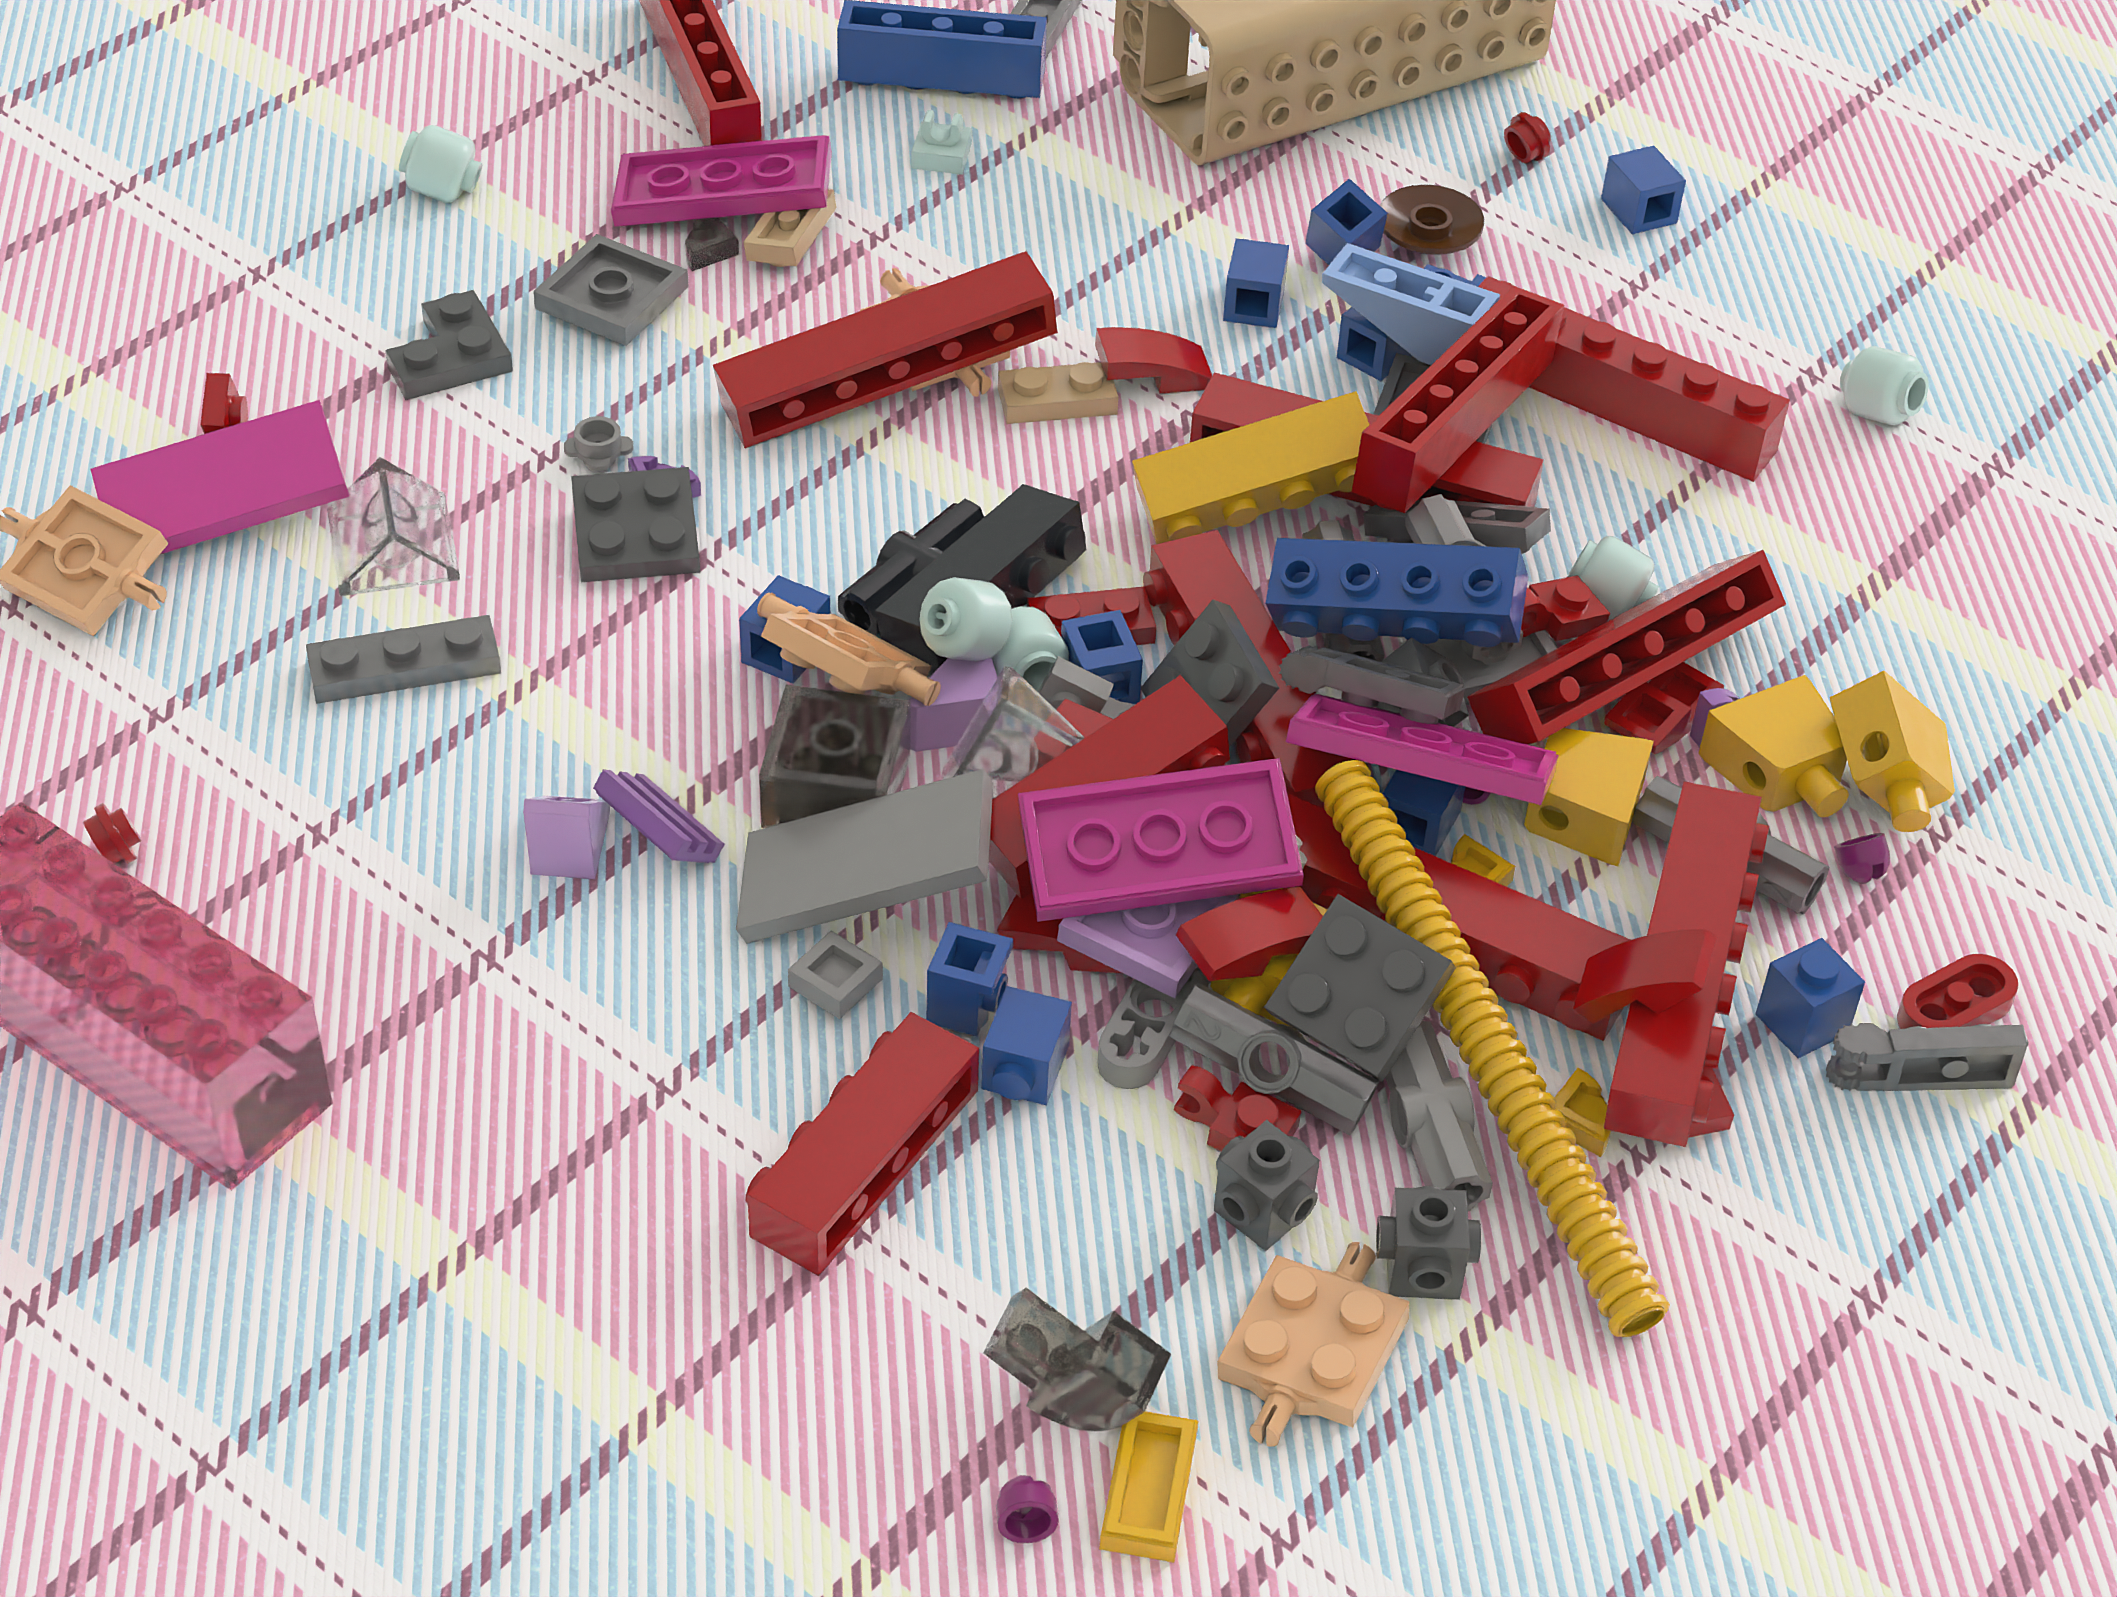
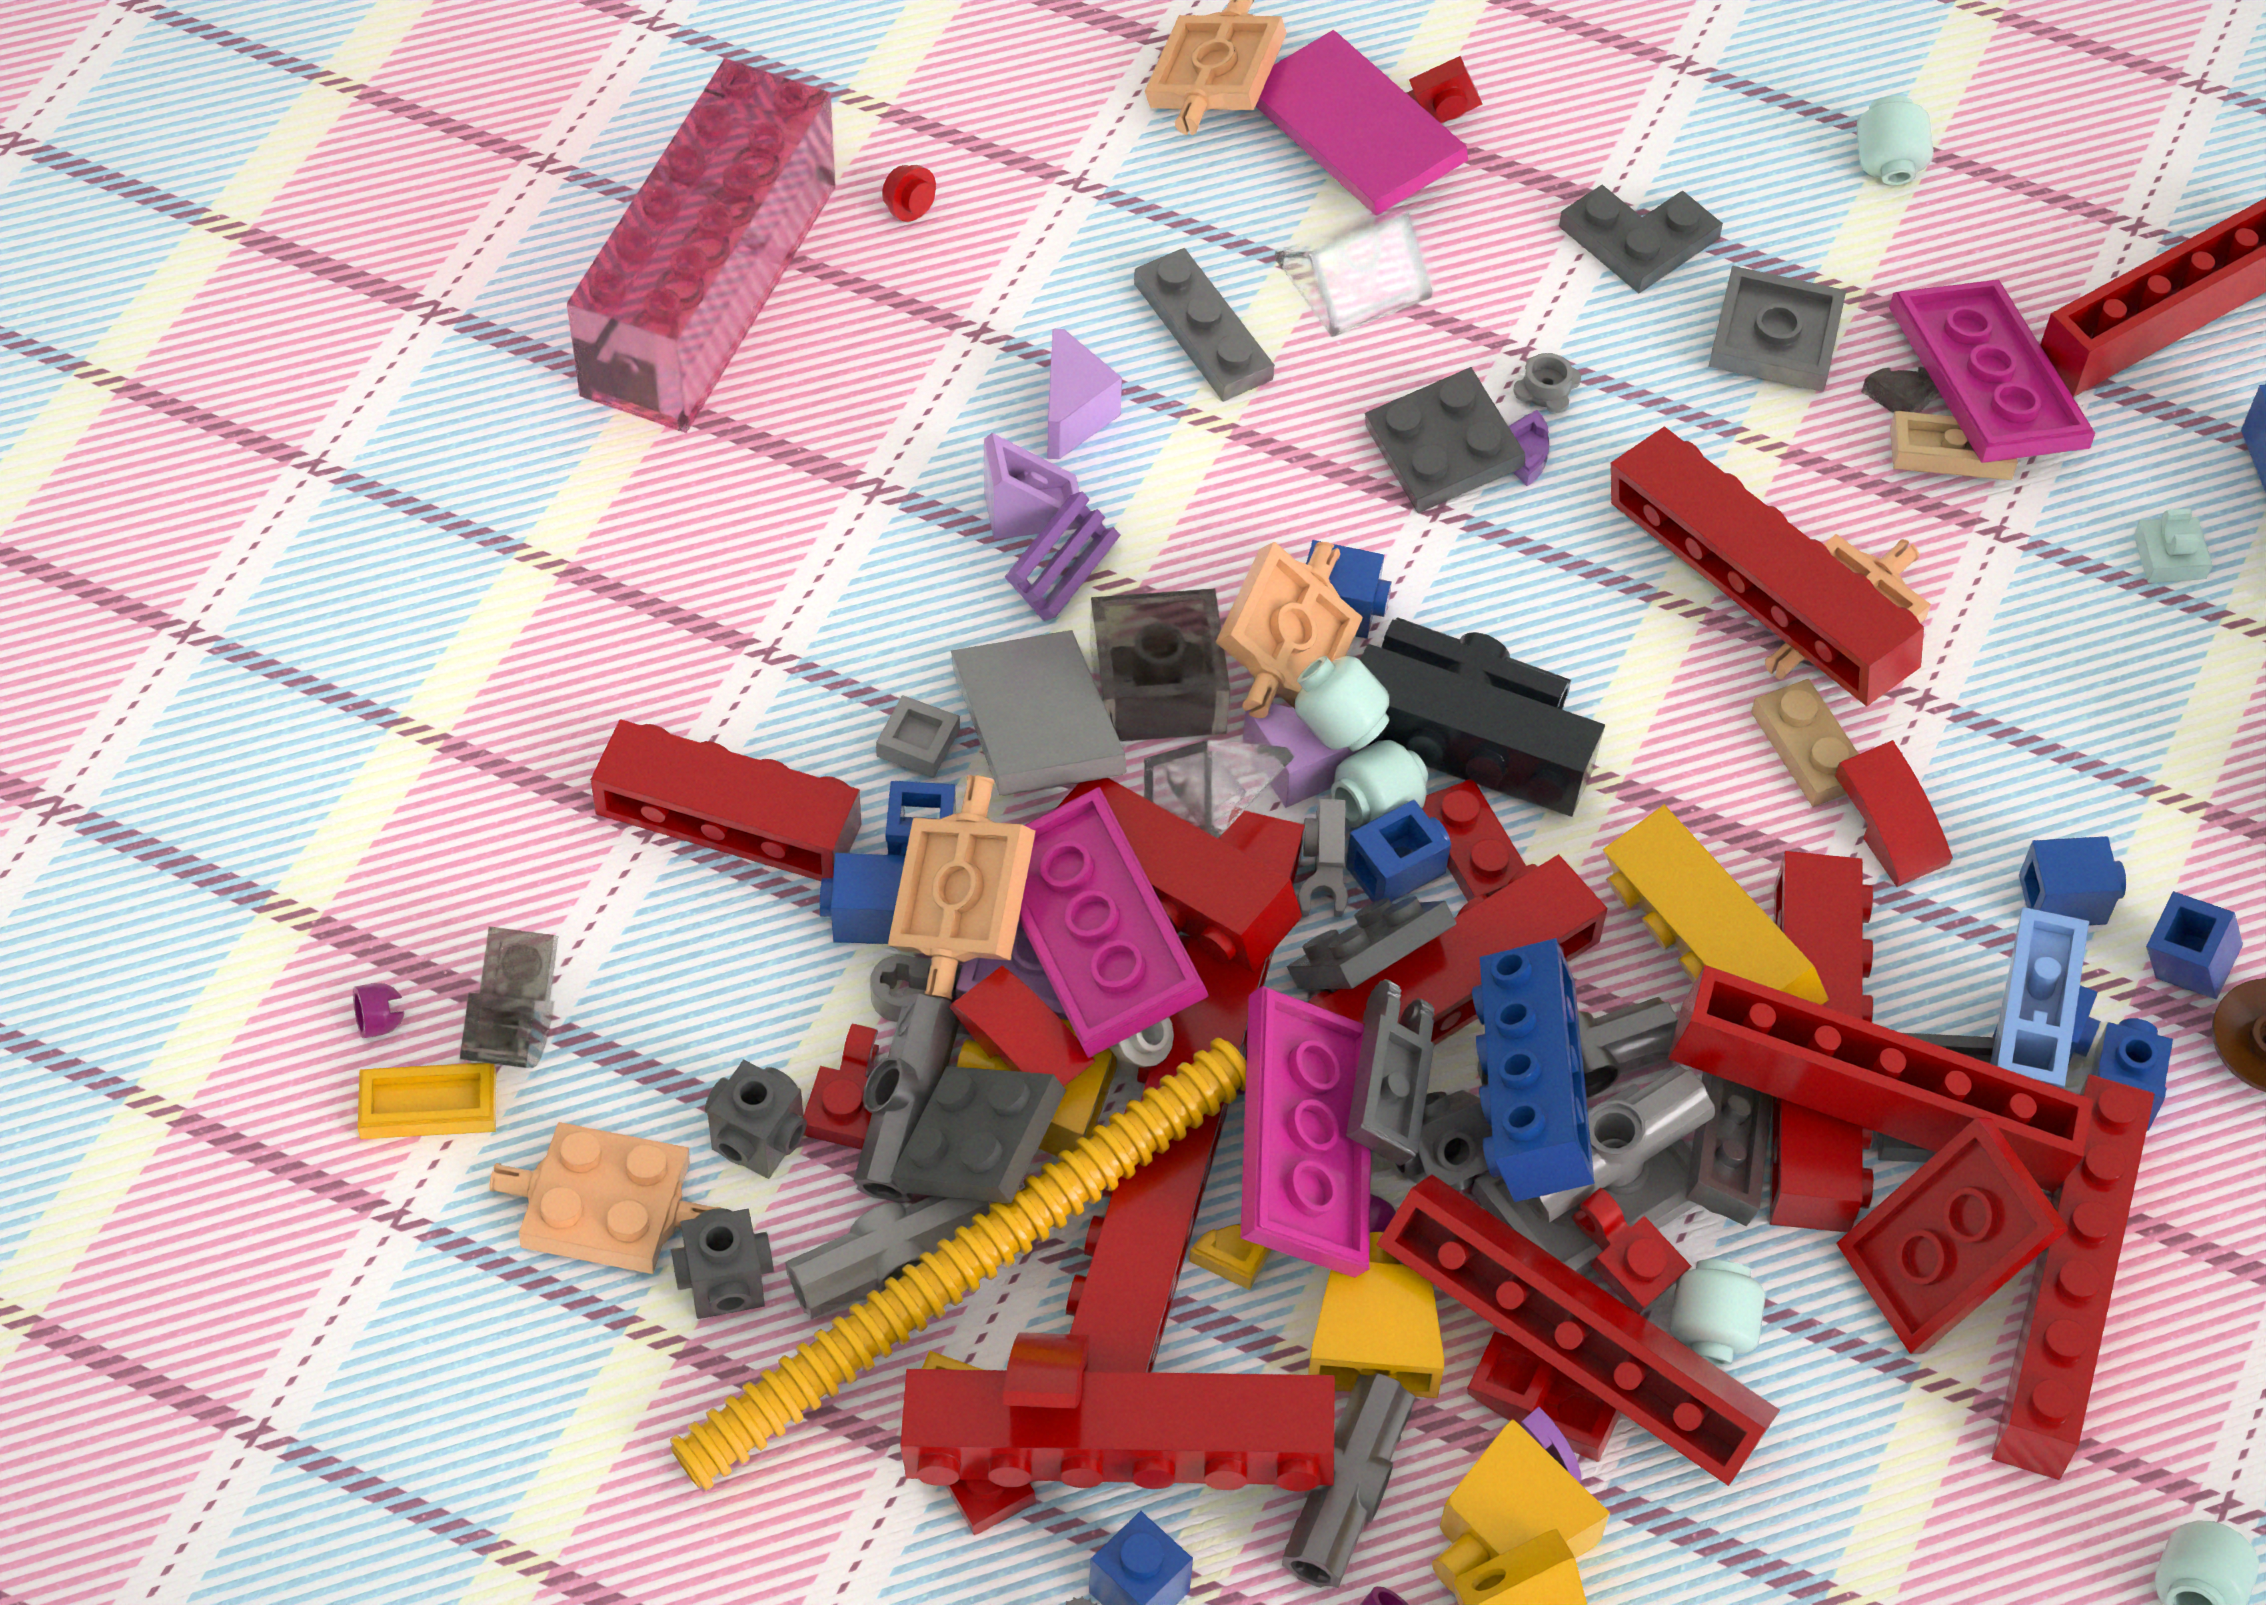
camera: 75 degrees right, 10 degrees up
(453, 762) = (1081, 394): none -> lavender slope
(1090, 930) = (961, 888): none -> light nougat plate
(1595, 412) = (1951, 1235): none -> red plate

